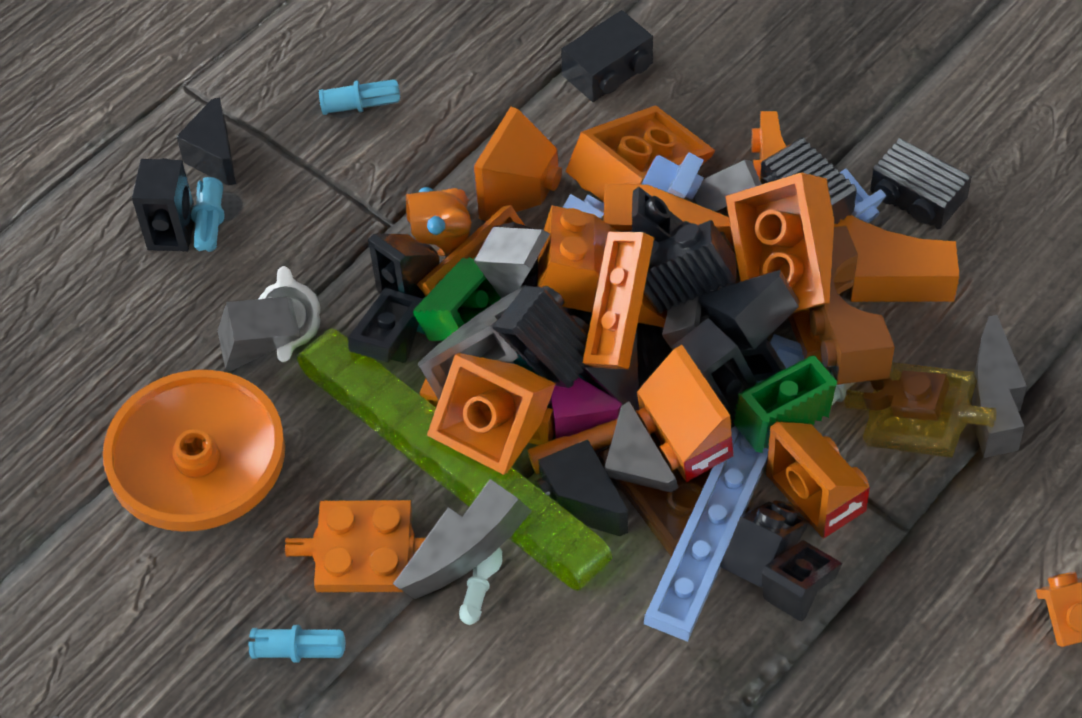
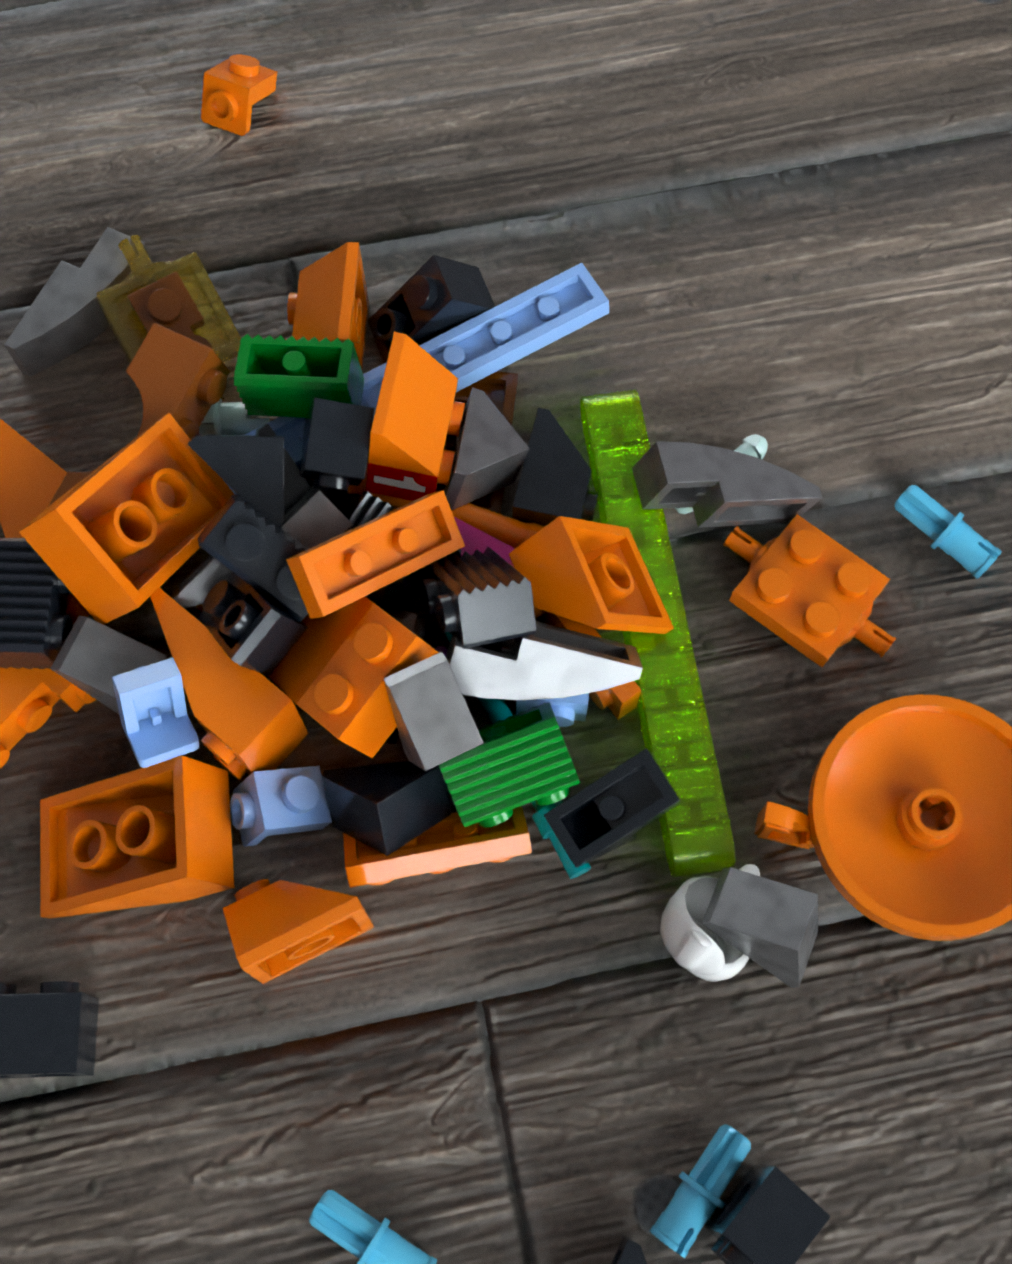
camera: 145 degrees left, 15 degrees up
(287, 396) = (783, 825): none -> orange tile
(401, 262) = (526, 884): black slope -> none
(439, 218) = (434, 920): orange piece -> none
(796, 577) = (445, 235): black slope -> none

